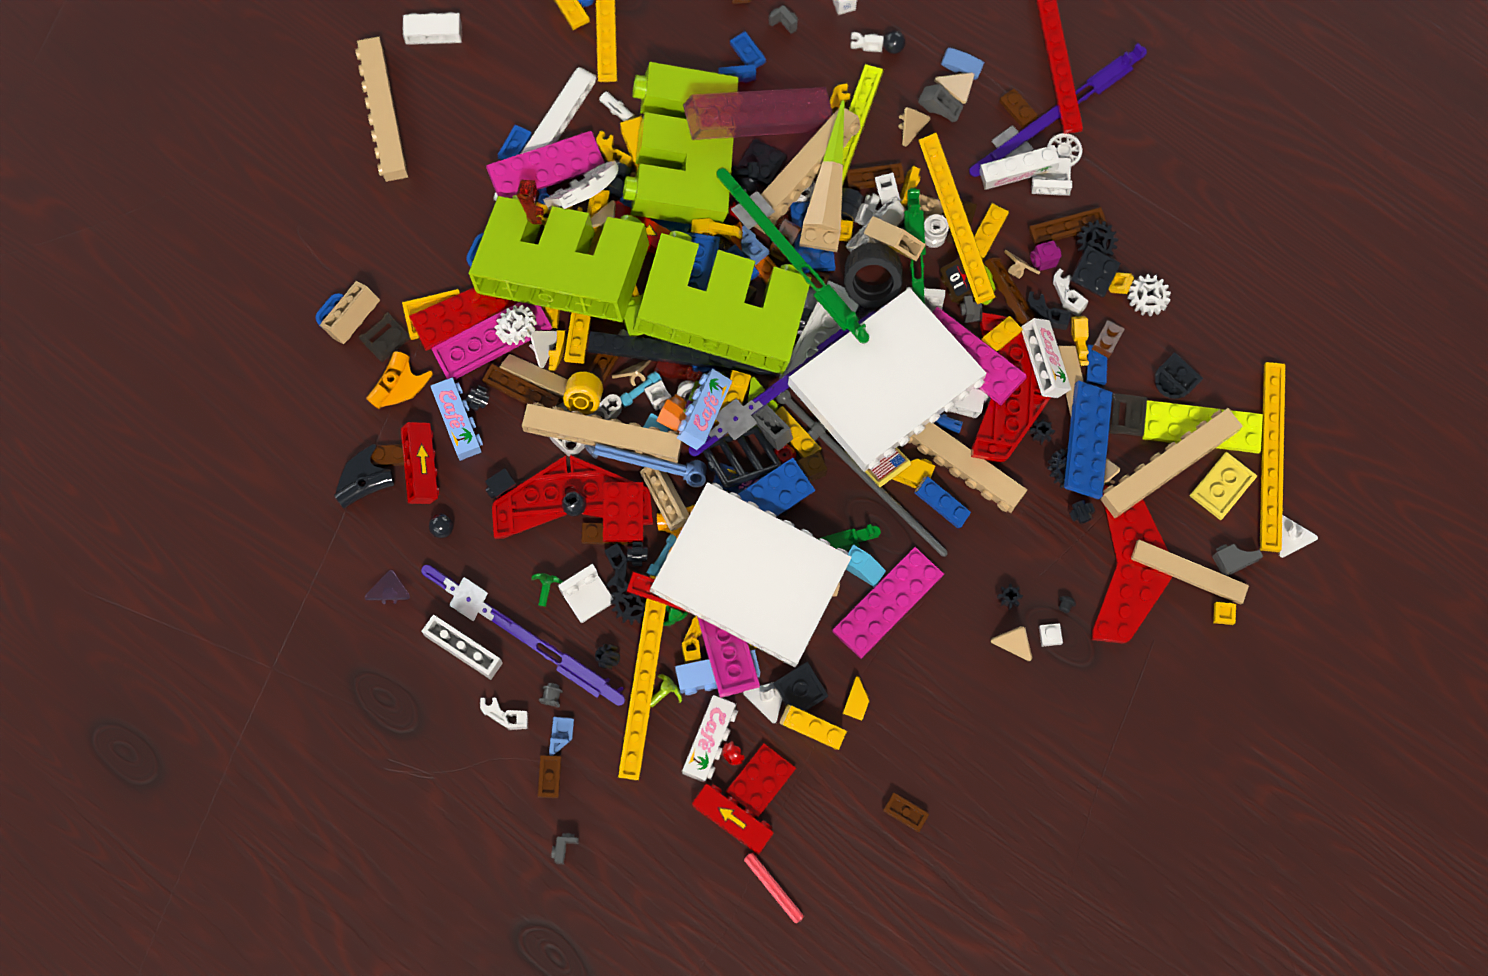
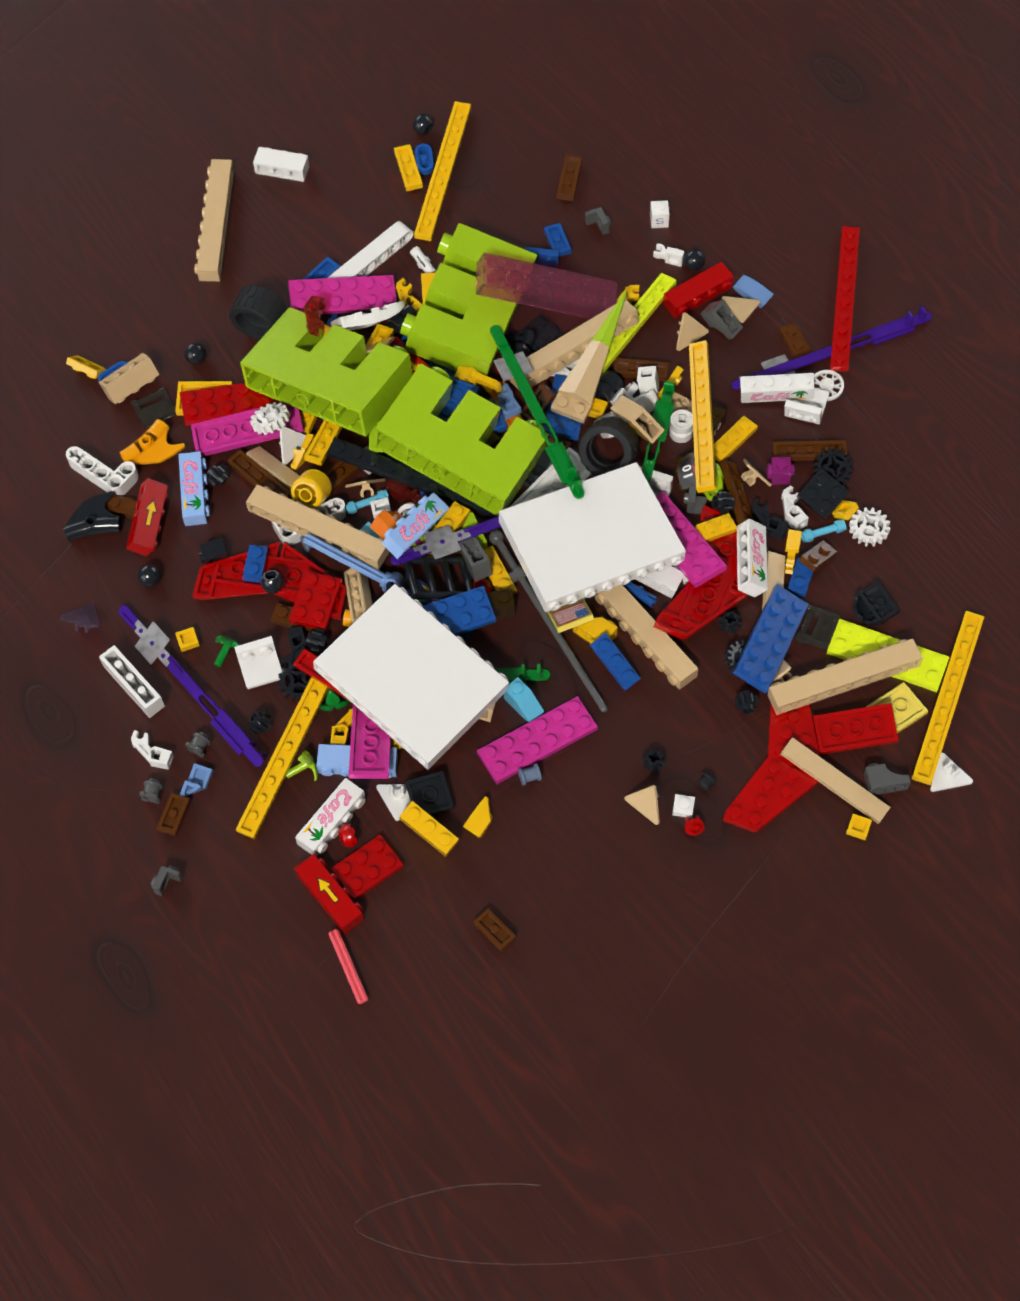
camera: 20 degrees right, 10 degrees down
(298, 308) = (83, 365): none -> yellow plate
(351, 421) = (98, 469): none -> white beam
(410, 267) = (195, 353): none -> black piece
(464, 207) = (256, 310): none -> black tyre
(503, 585) = (187, 639): none -> yellow plate
(519, 757) = (151, 791): none -> dark grey brick
(548, 487) = (255, 563): none -> blue plate
(892, 642) = (529, 774): none -> sand blue bush
(908, 75) = (698, 290): none -> red brick
(1000, 305) = (723, 502): none -> black gear
(1067, 655) = (694, 826): none -> red plate
(1117, 302) = (838, 526): none -> medium azure bar
(1195, 513) = (855, 729): none -> red plate

